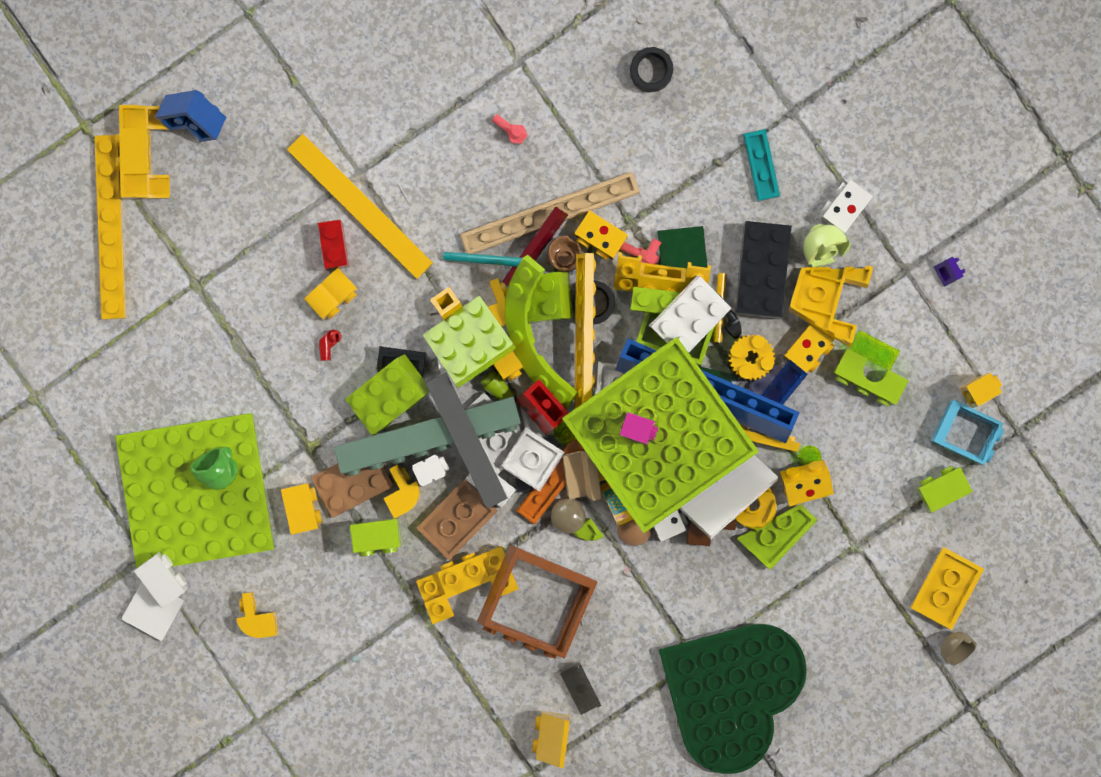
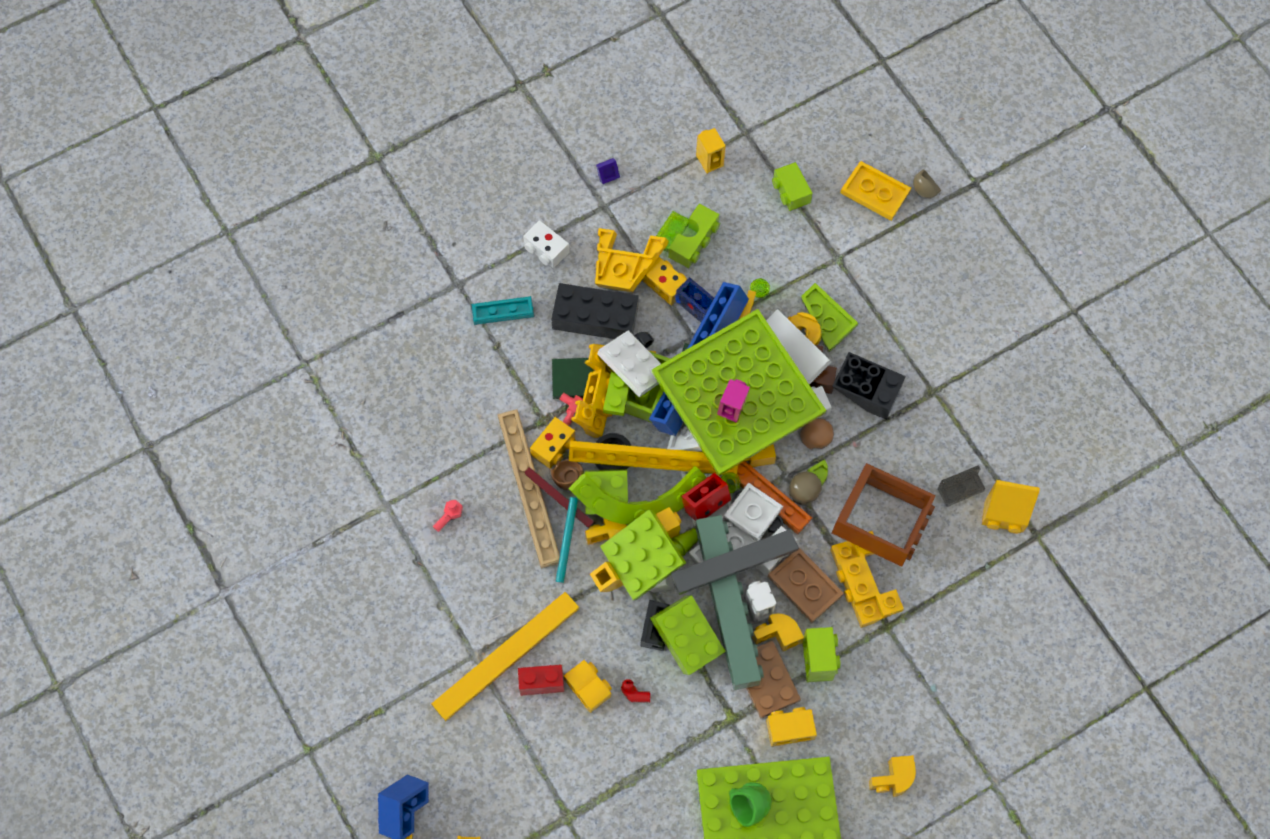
camera: 85 degrees left, 20 degrees down
(581, 476) = (769, 470): tan panel -> none
(617, 509) = (794, 442): tile -> none
(648, 52) = (401, 378): black tyre -> none
(693, 582) = (869, 385): none -> black slope
(729, 691) = (962, 365): dark green plate -> none
(759, 347) = (671, 325): yellow brick -> none
(806, 482) = (783, 288): yellow brick -> none
(823, 244) = (576, 262): yellowish green cylinder -> none
(946, 422) = (737, 181): medium azure window -> none

